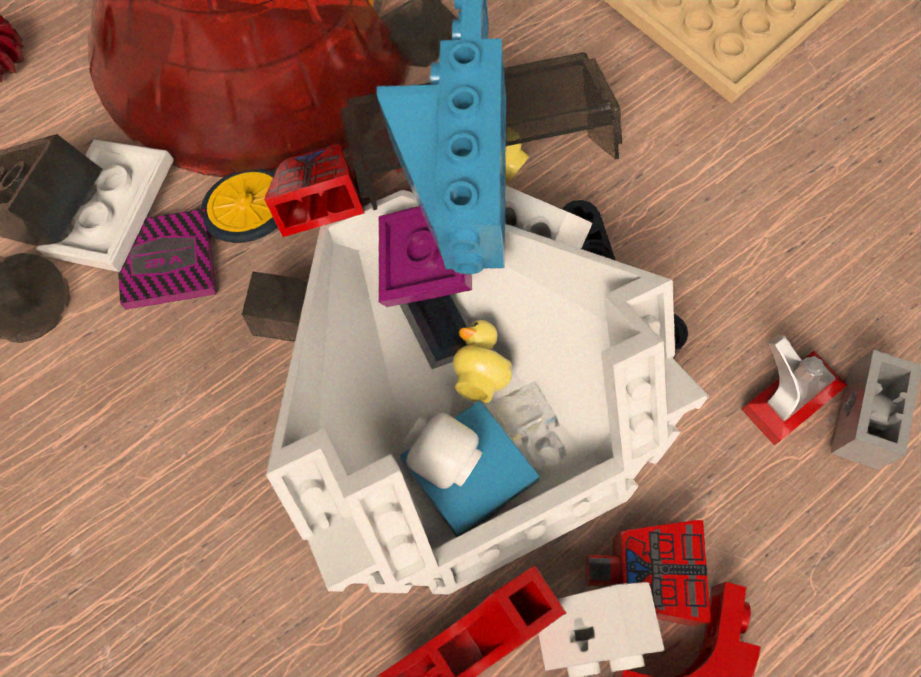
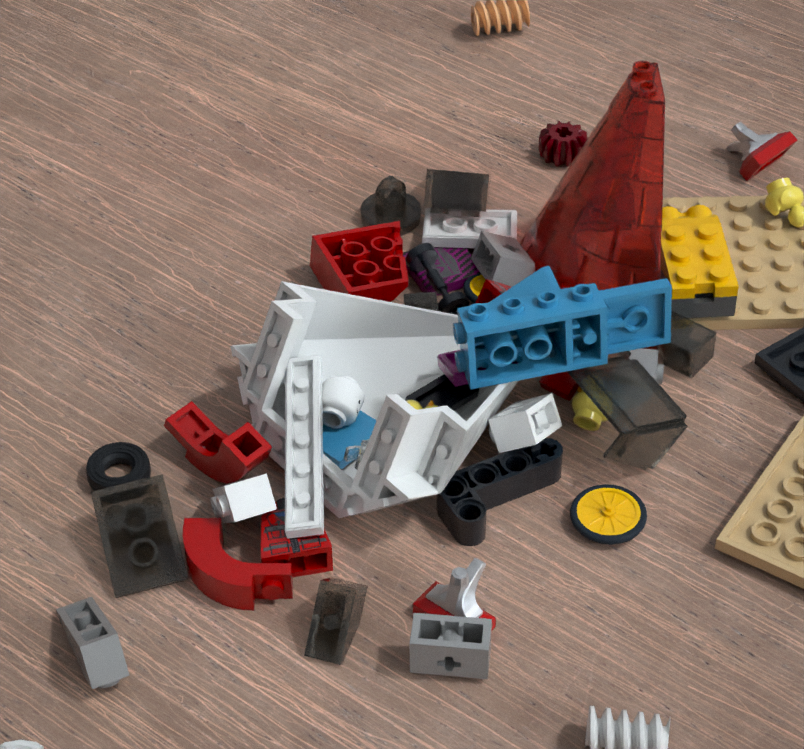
camera: 80 degrees right, 25 degrees down
(147, 360) = (361, 261): none -> red wedge
(208, 268) = (421, 259): none -> black wheel
(211, 176) = (502, 259): none -> light grey brick
(548, 519) = (304, 447): none -> white tile
(667, 189) = (608, 514): none -> yellow wheel
(799, 538) = (335, 619): none -> clear smoke slope

